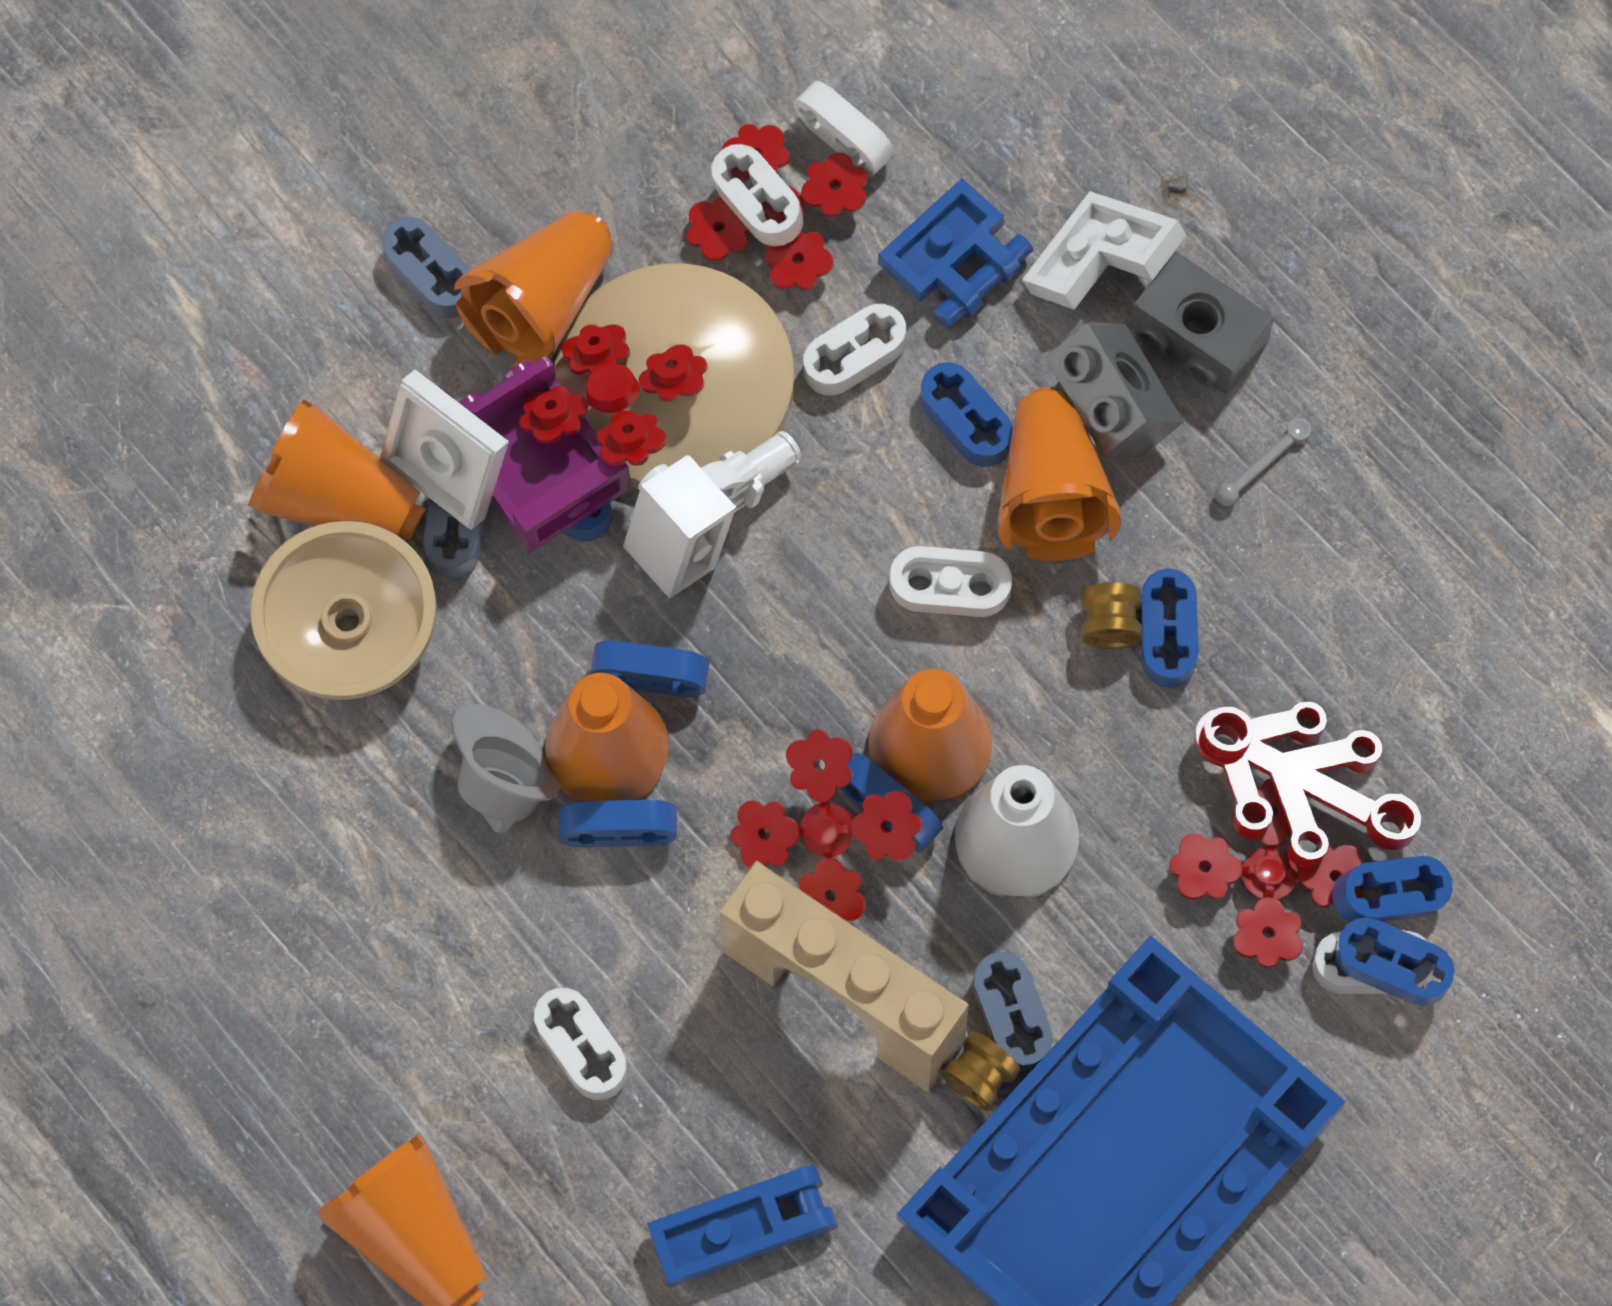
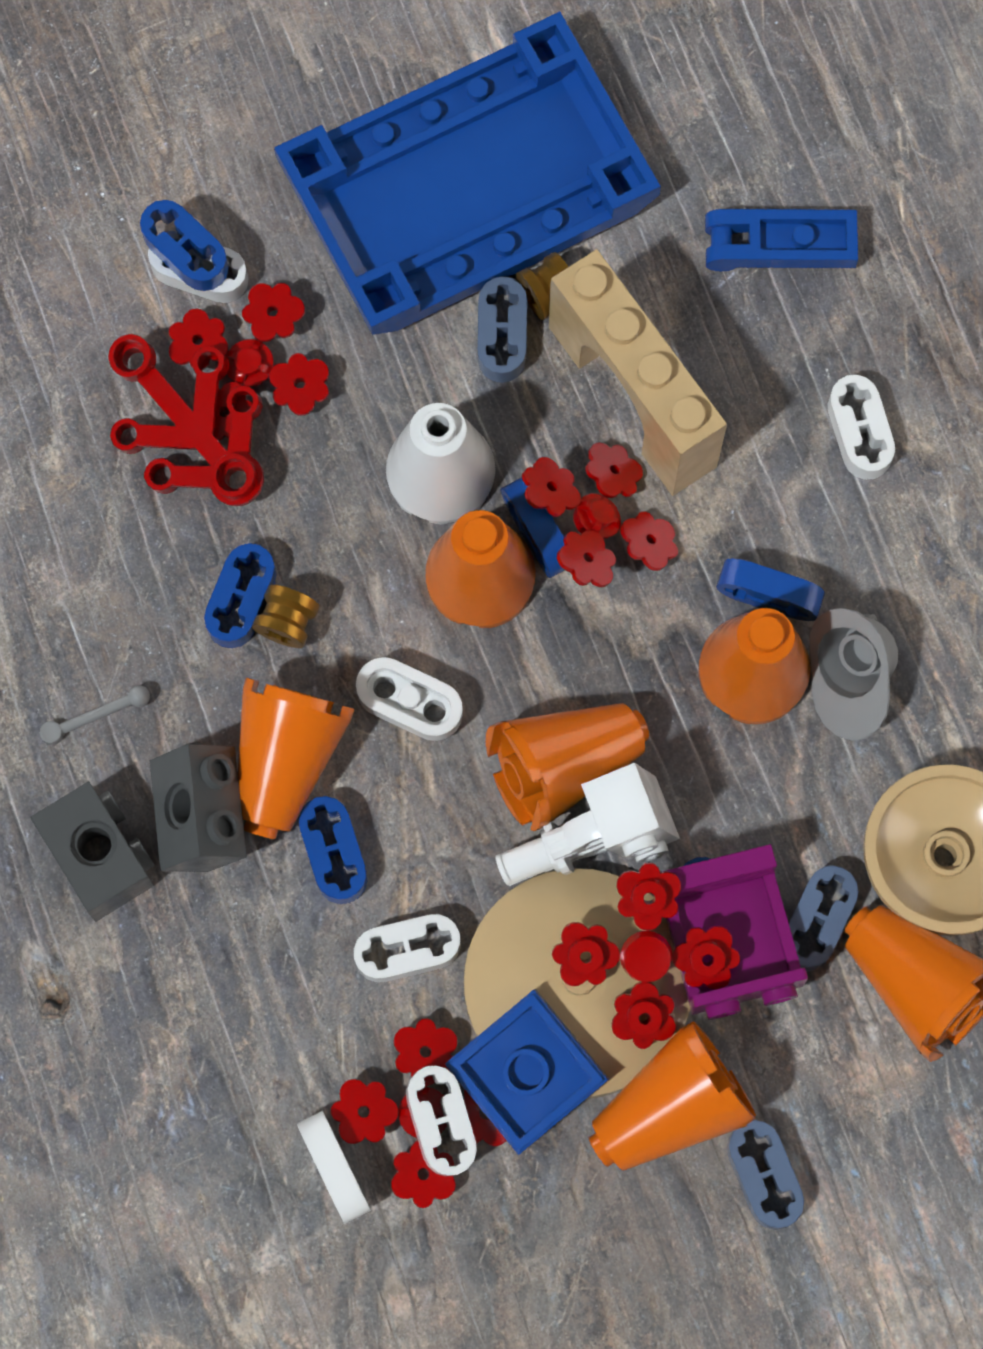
camera: 160 degrees left, 5 degrees up
(443, 449) = (820, 948): white plate -> none
(652, 667) = (696, 713): blue beam -> none
(691, 265) = (526, 1071): none -> blue tile
(765, 570) = (555, 753): none -> orange cone
(942, 241) = (286, 1020): blue plate -> none
(1098, 236) = (149, 966): white plate -> none
(1390, 877) = (157, 315): blue beam -> none

